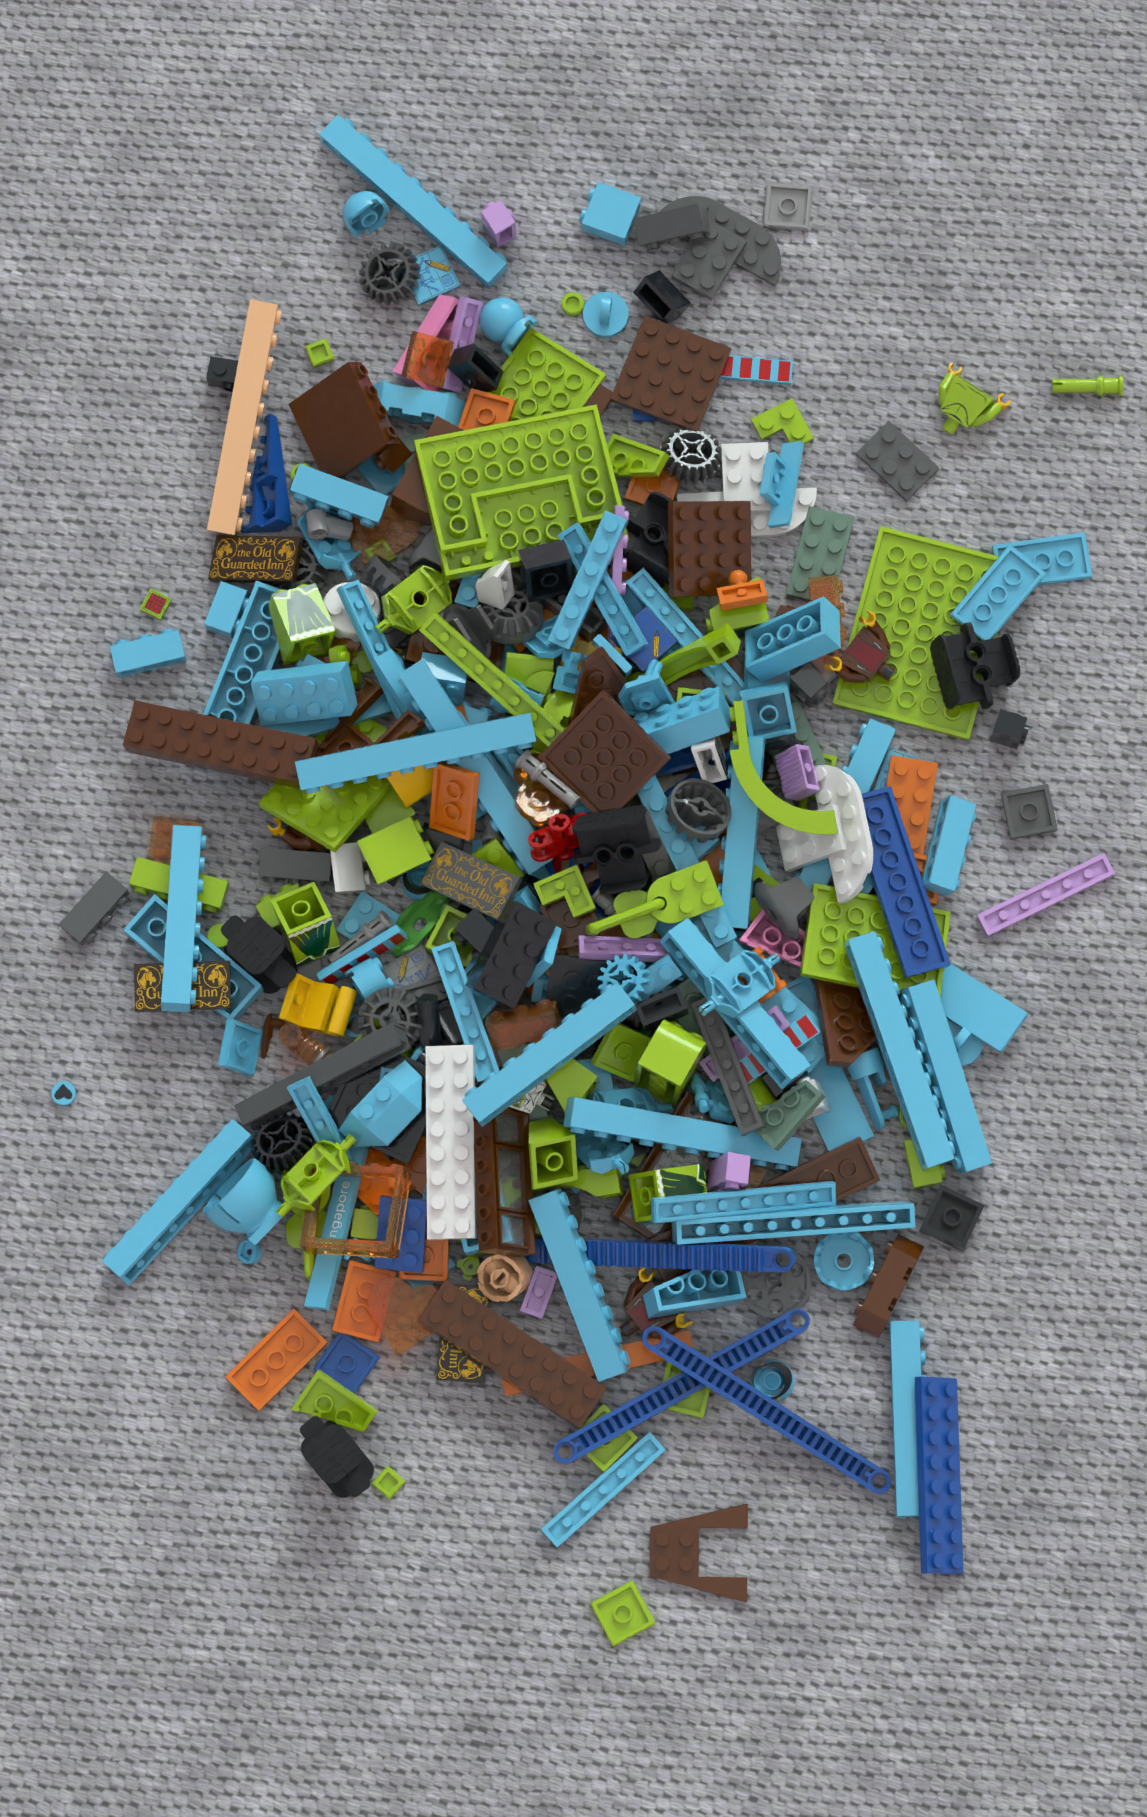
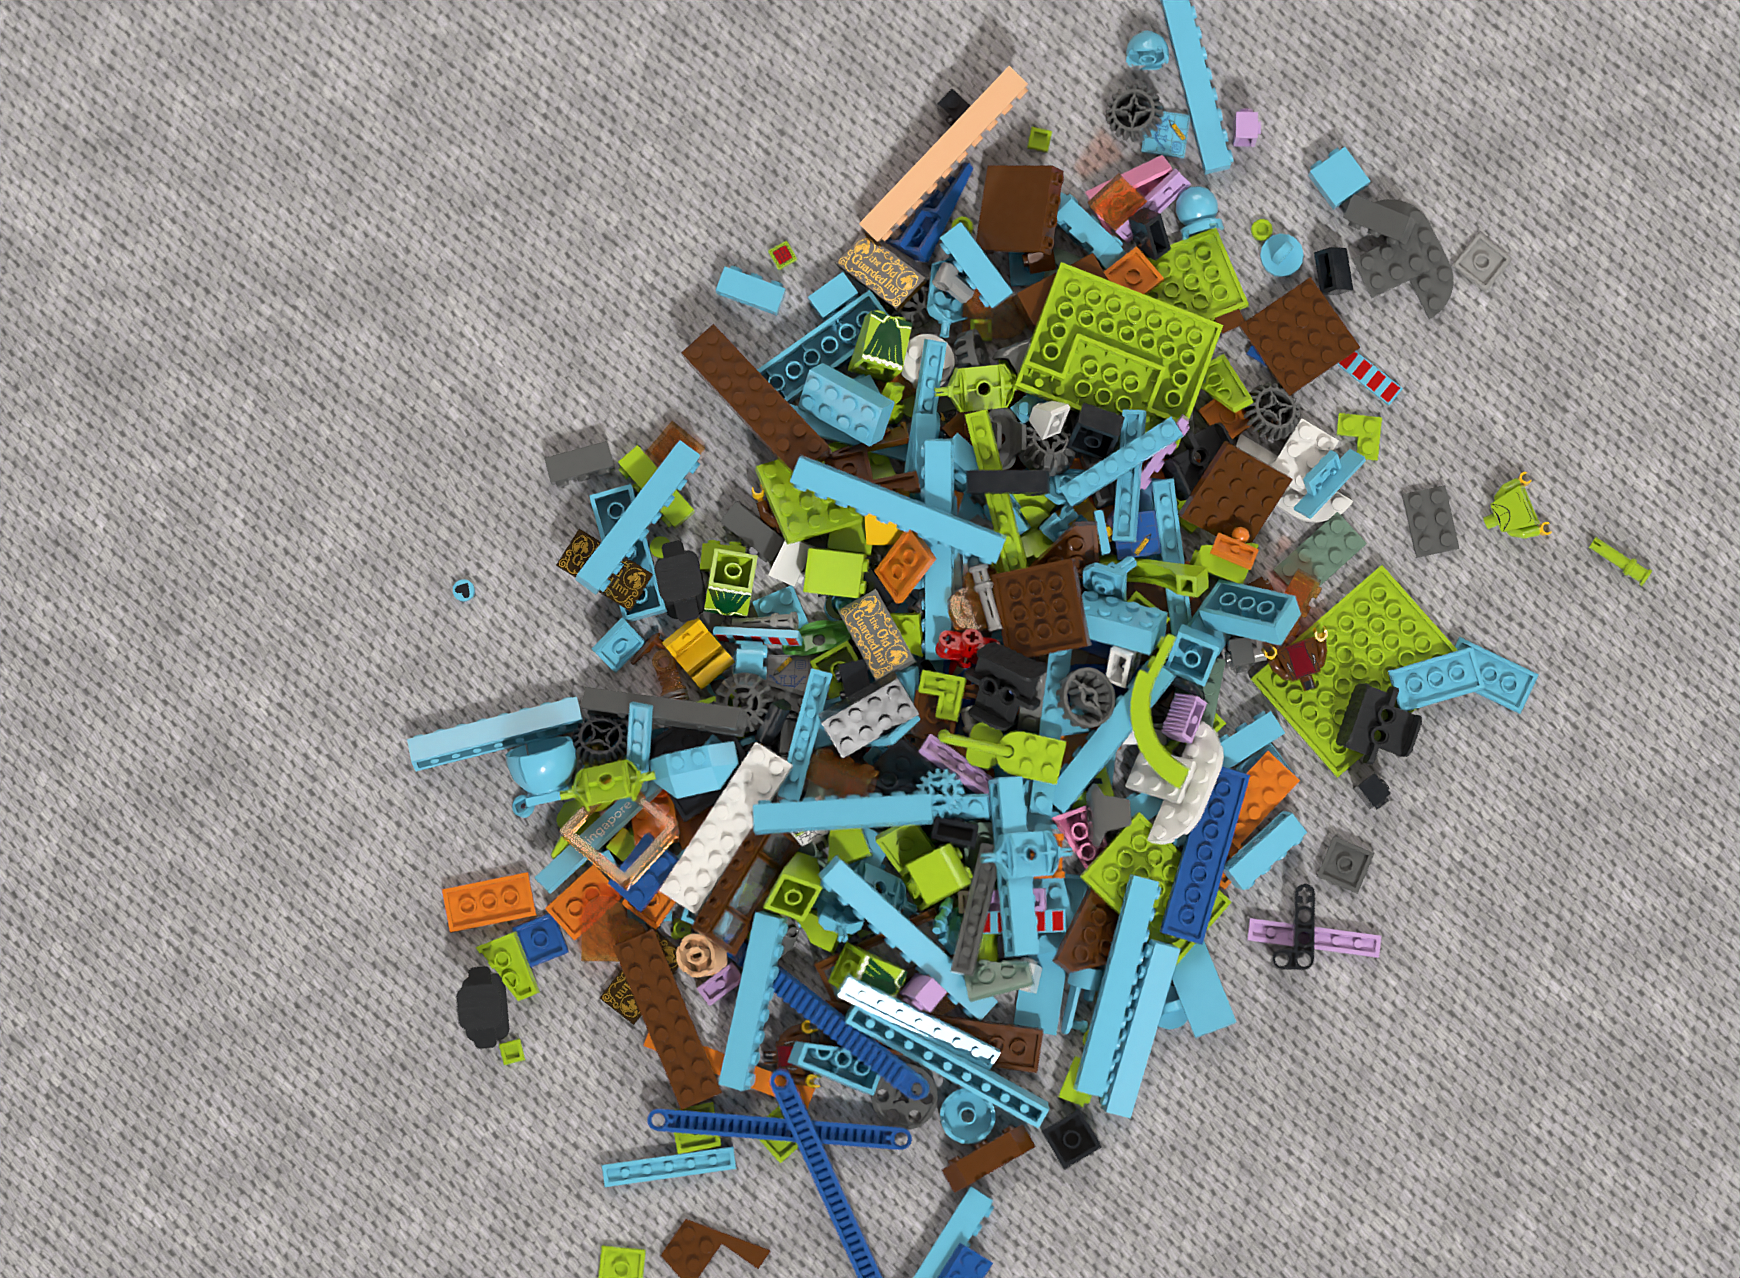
camera: 35 degrees right, 5 degrees up
(514, 653) = (1008, 482): none -> black beam
(773, 1379) = (853, 1169): medium azure piece -> none
(1025, 892) = (1298, 927): none -> black beam

